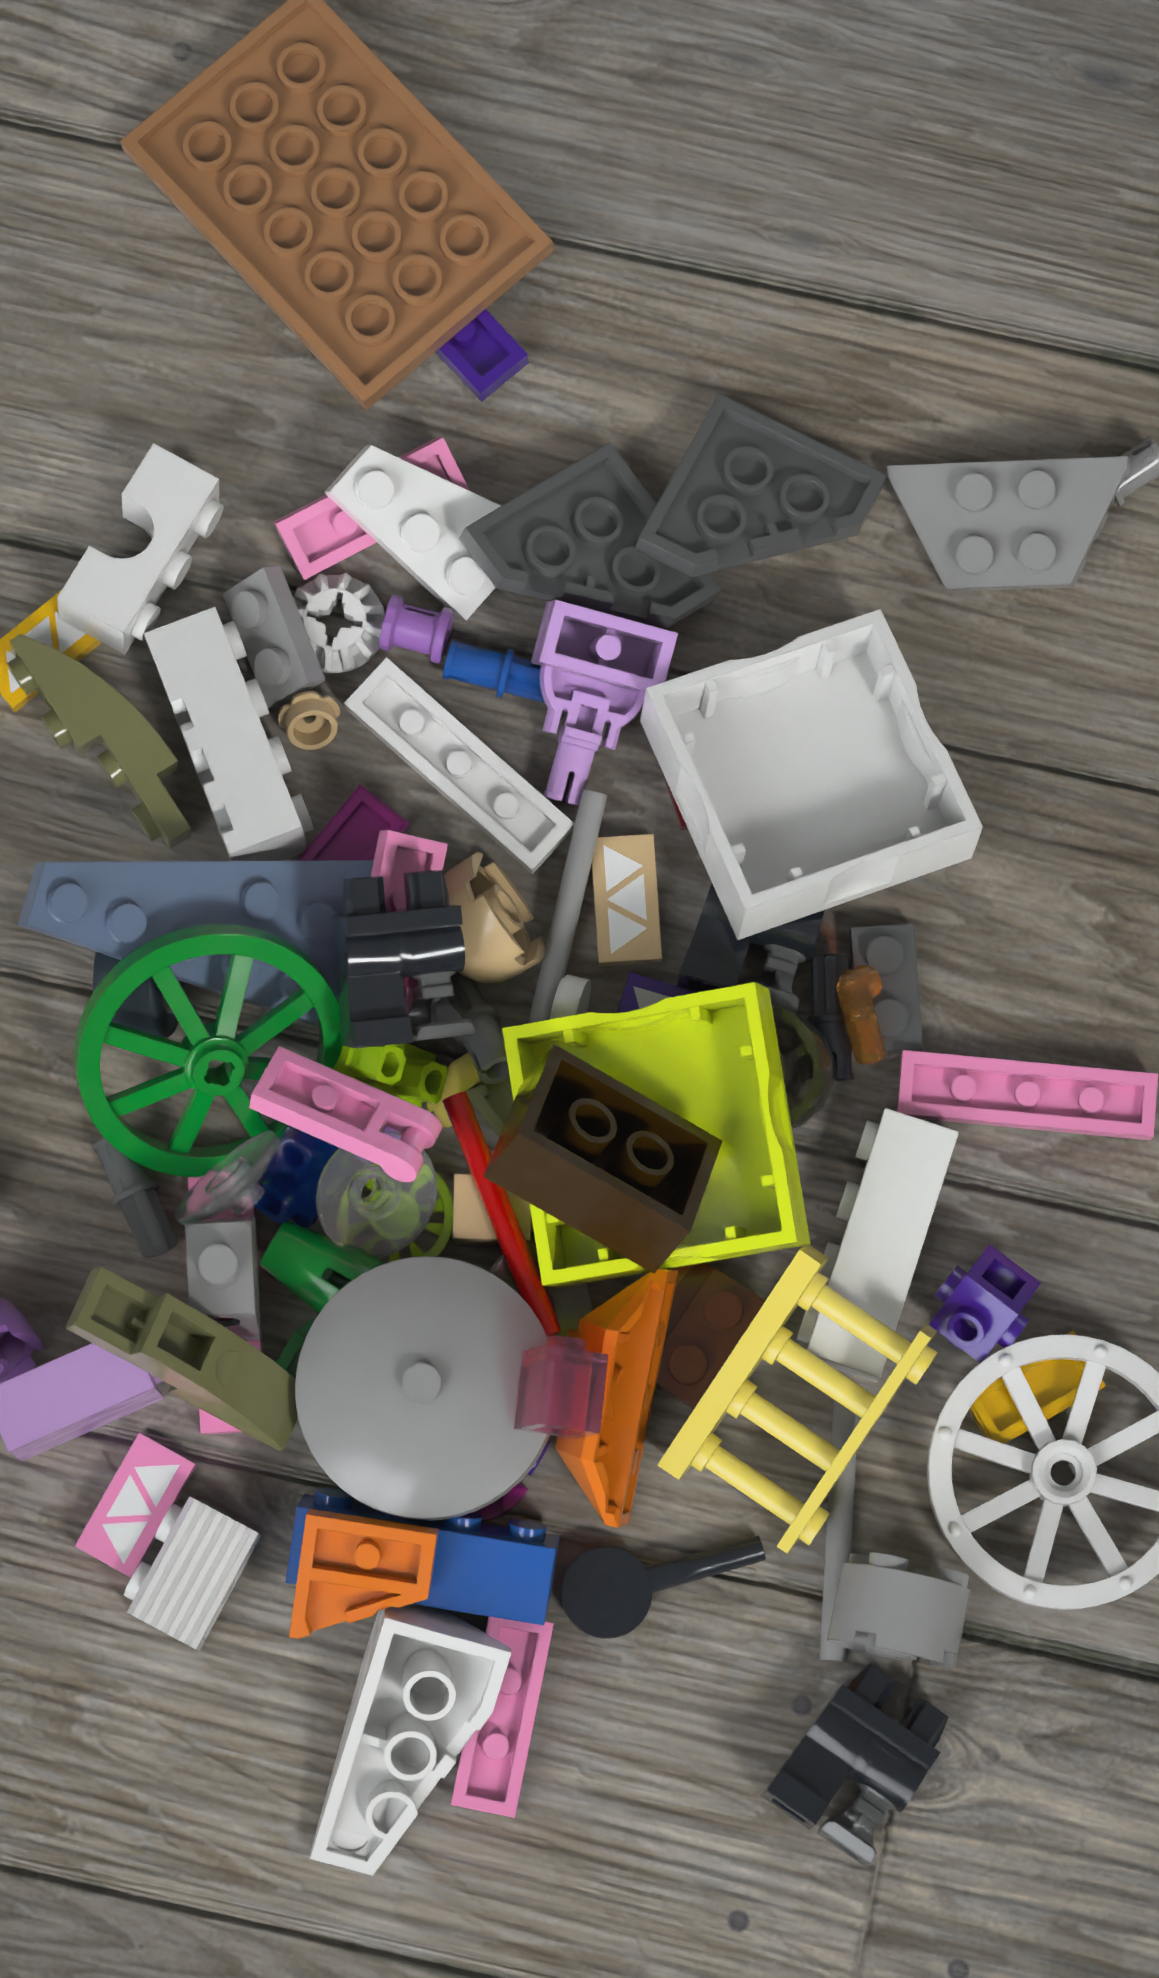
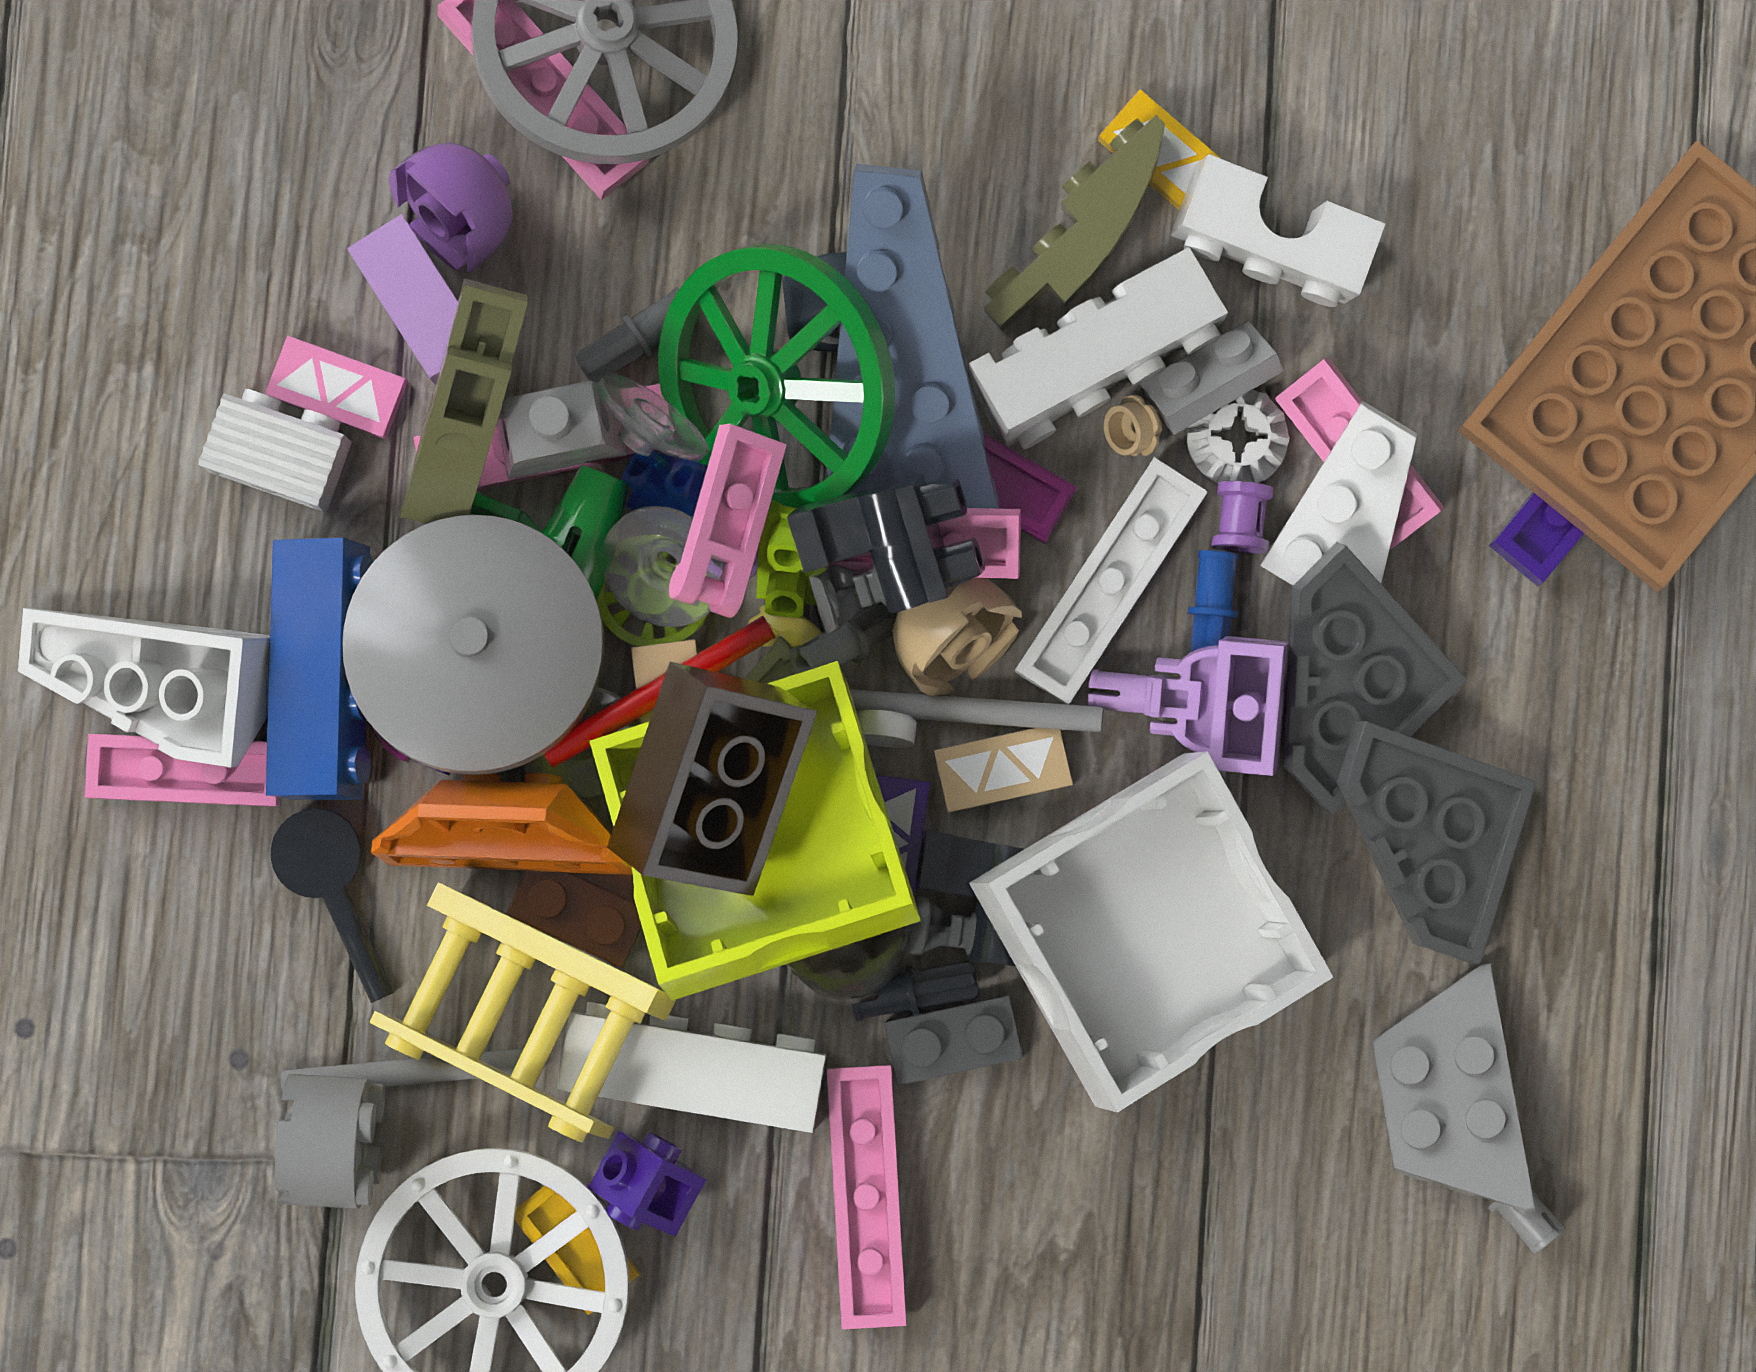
camera: 90 degrees right, 5 degrees up
(357, 1568) = (289, 606): orange wing -> none
(561, 1389) = (480, 773): clear pink brick -> none
(855, 996) = (915, 1016): clear orange arm -> none
(869, 1747) = (201, 1123): black hips -> none

